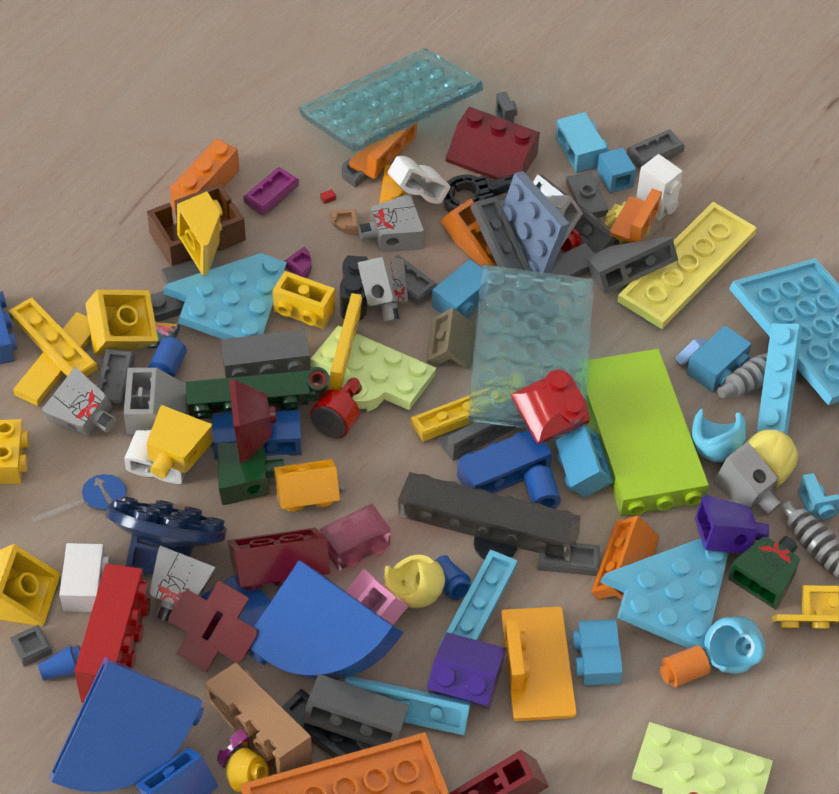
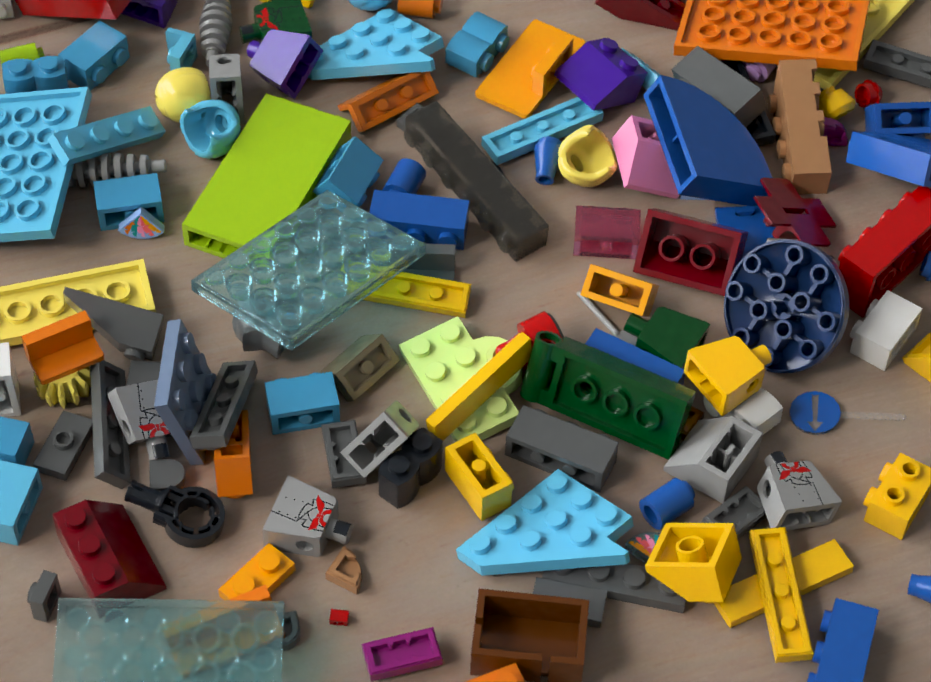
camera: 145 degrees left, 0 degrees up
(200, 229) = (551, 560): yellow slope -> none
(250, 418) = (647, 334): dark red slope -> none
(299, 263) = (439, 547): magenta tile -> none
(419, 179) = (237, 540): white brick -> none
(552, 406) = (345, 201): red slope -> none

